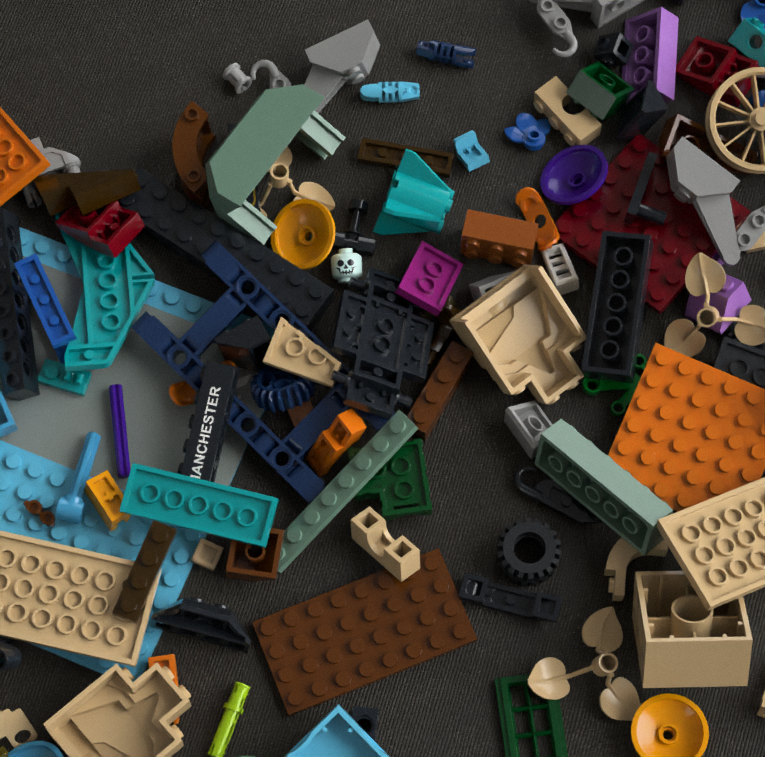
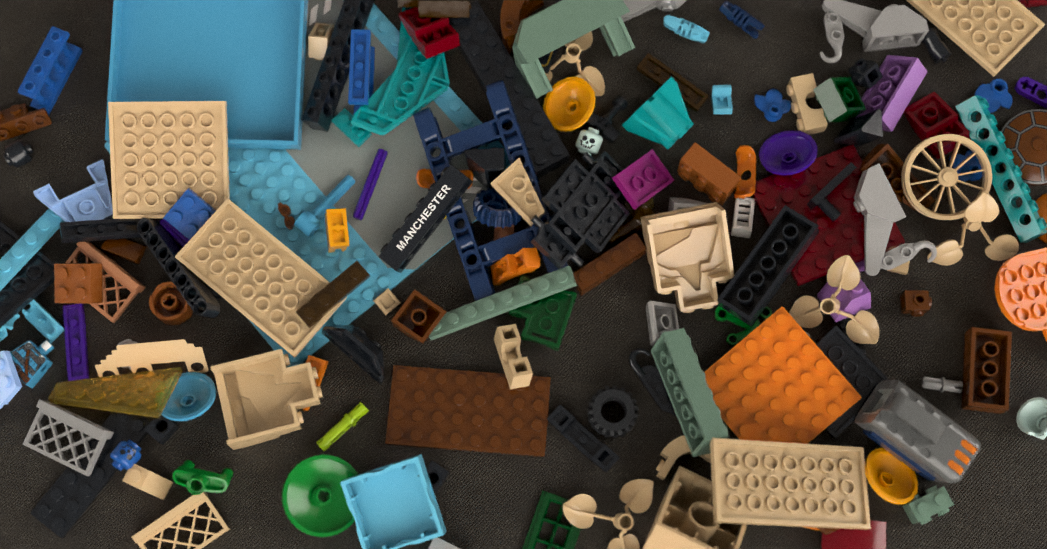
camera: 25 degrees right, 5 degrees up
(199, 505) = (395, 265): teal plate -> none

